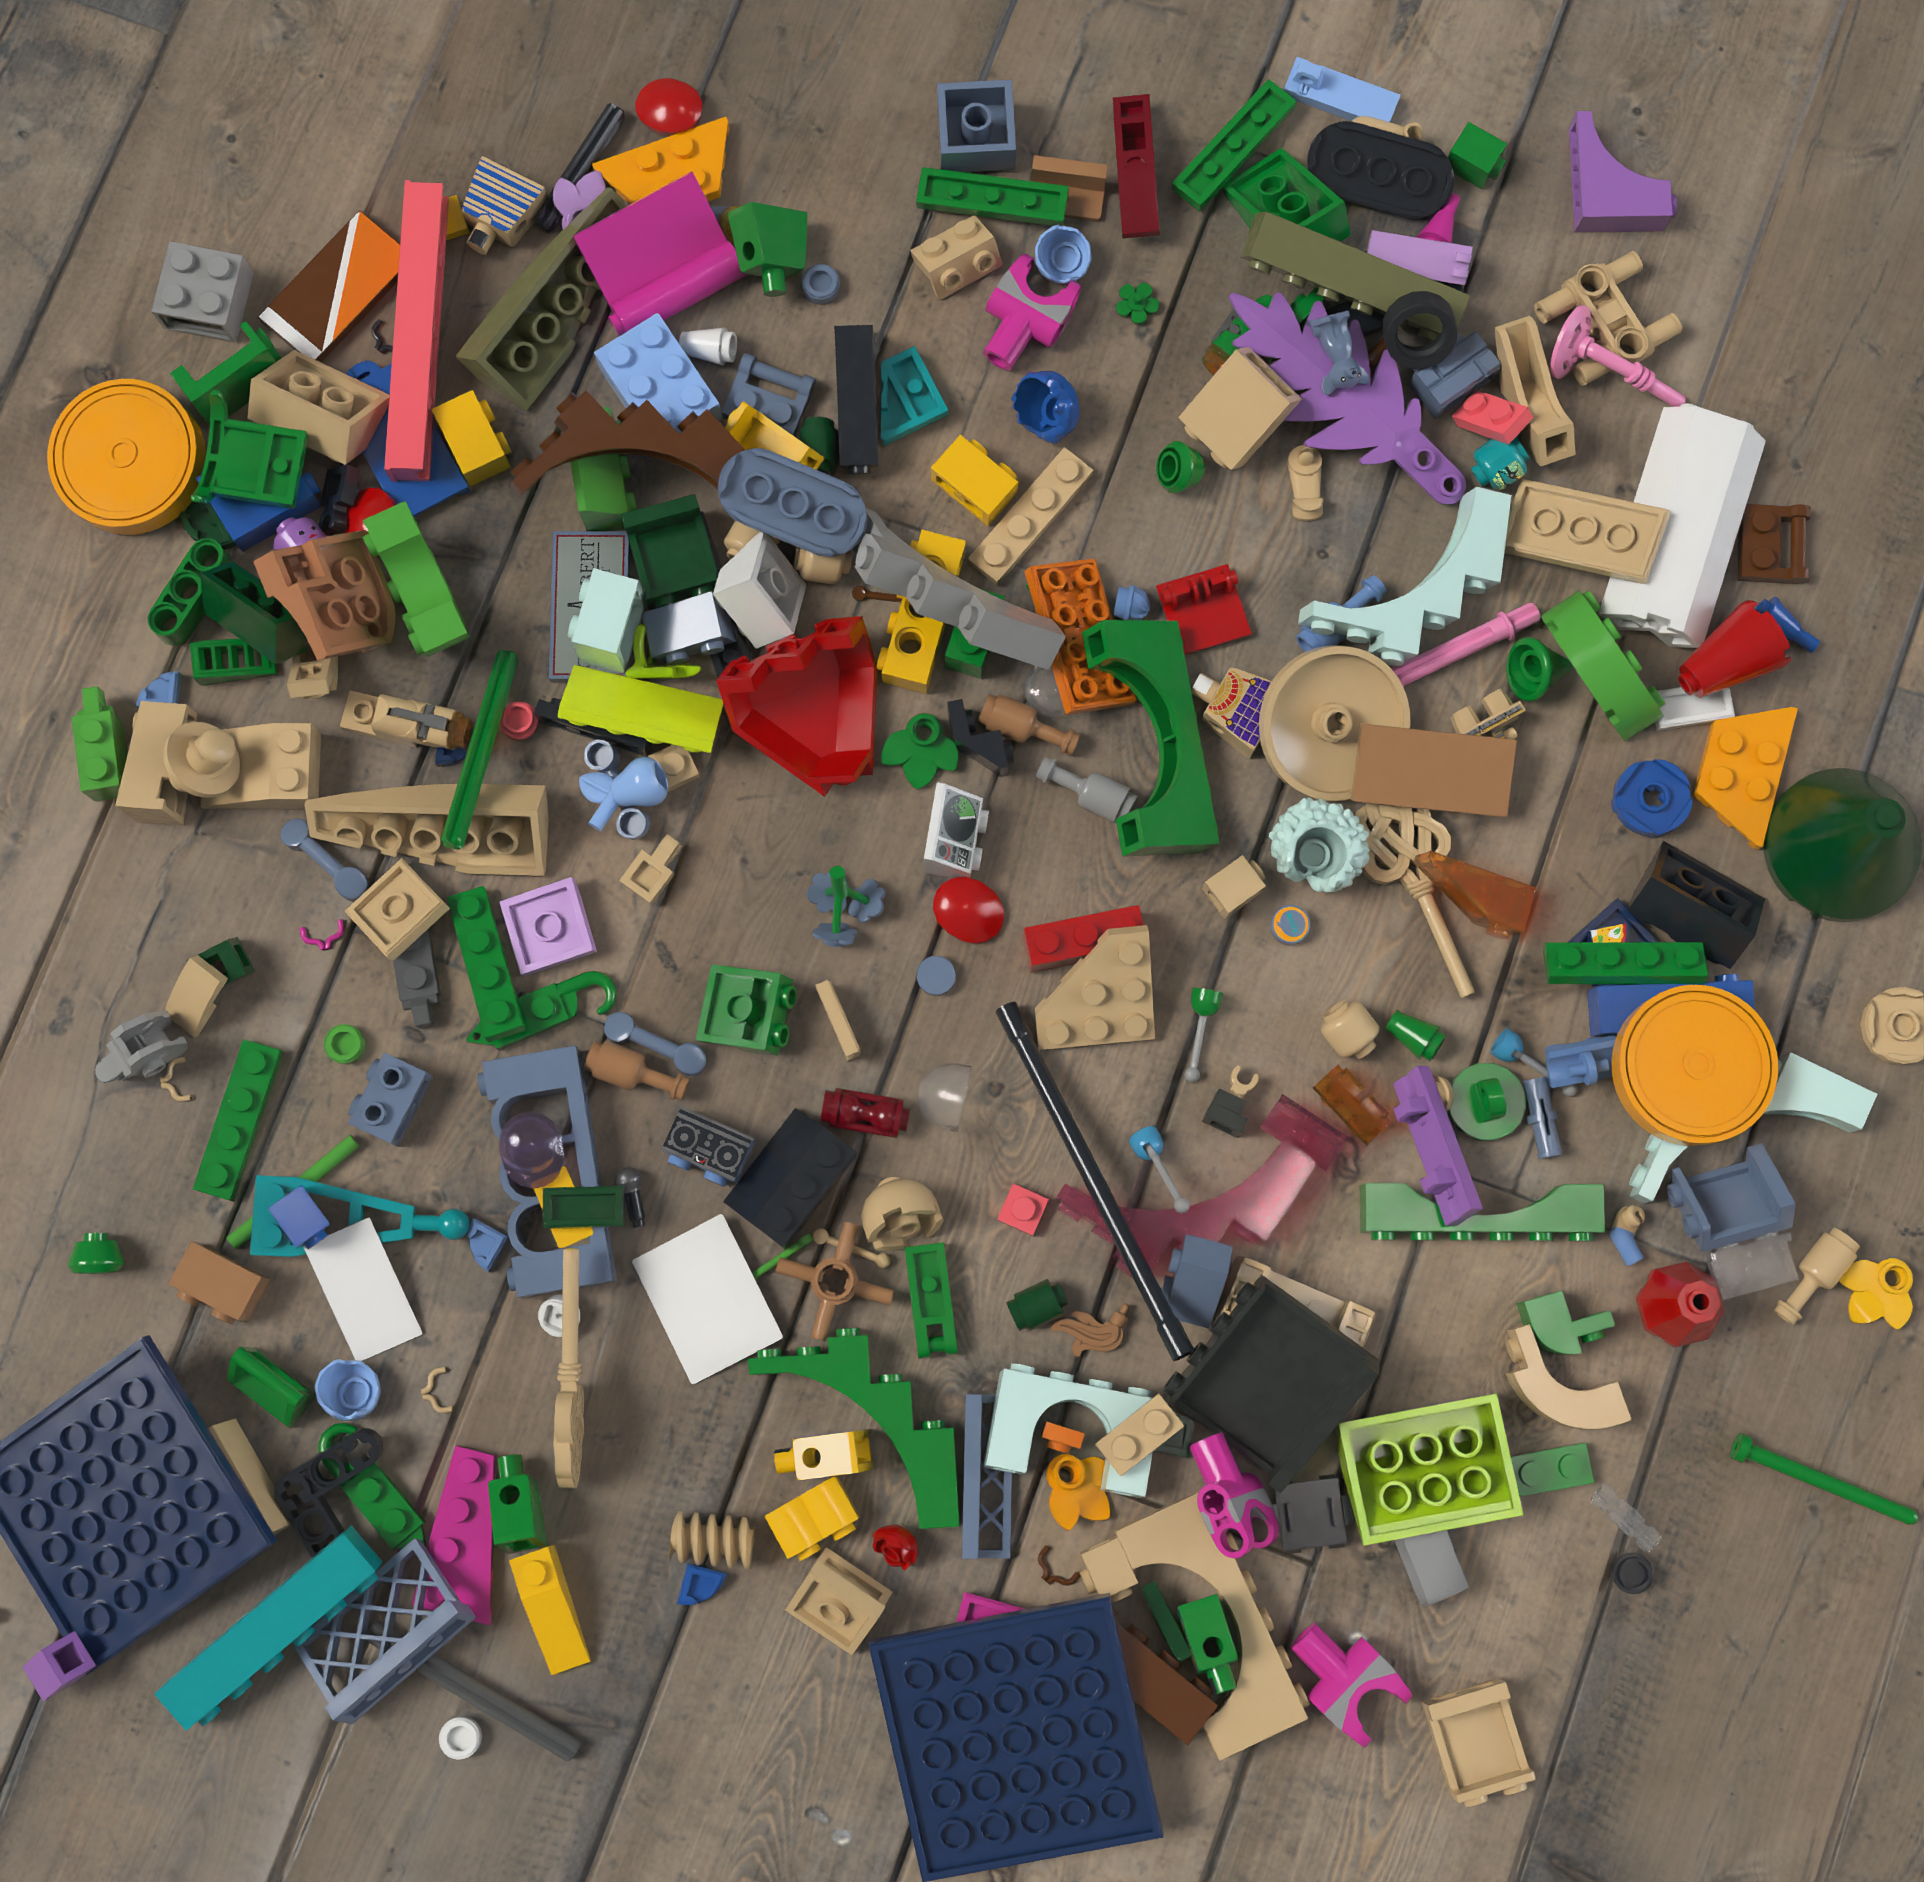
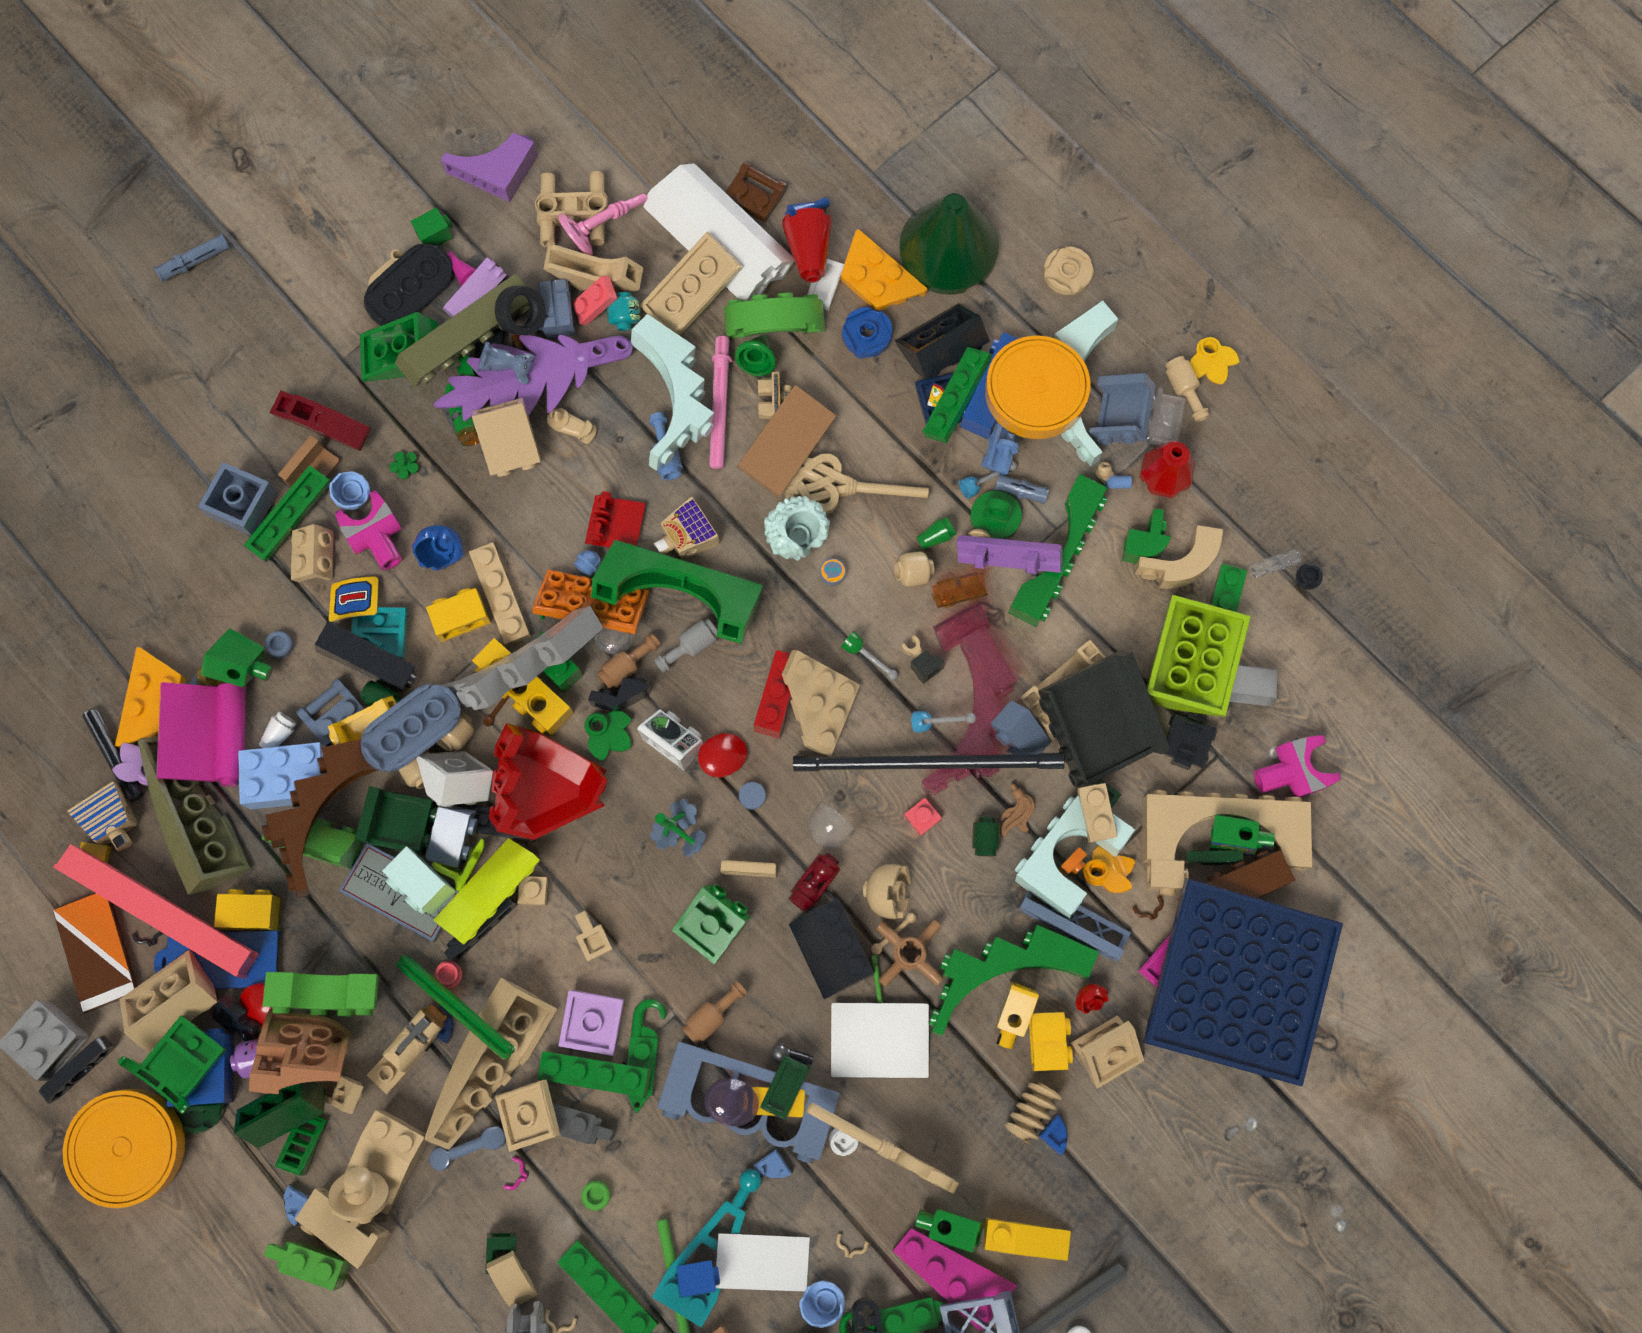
camera: 60 degrees left, 5 degrees down
(171, 601) = (239, 1166): green beam -> none
(181, 346) = (76, 1069): none -> black beam
(231, 376) = (114, 1046): green panel -> none
(389, 1098) = (647, 1182): sand blue brick -> none
(606, 758) = (503, 931): sand blue bar -> none
(637, 785) = (533, 917): light blue piece -> none
(669, 106) = (107, 679): red hat -> none
(688, 1057) = (682, 1007): sand blue bar -> none
(707, 1146) = (785, 990): brick -> none
(927, 340) = (353, 598): none -> sticker
(930, 1298) = (949, 900): green plate -> none
(1179, 467) = (520, 491): green cone -> none
(1231, 1498) = (1160, 779): dark pink connector -> none
(1233, 145) = (342, 359): green plate -> none
(1235, 886) = (793, 590): tan brick -> none
(1316, 713) = (717, 489): tan dish -> none
(1339, 92) = (346, 285): light blue hinge -> none
(1478, 1742) = (1366, 713): tan panel -> none
(1481, 895) = (873, 454): clear orange slope -> none
(1744, 1449) = (1266, 479): green bar -> none

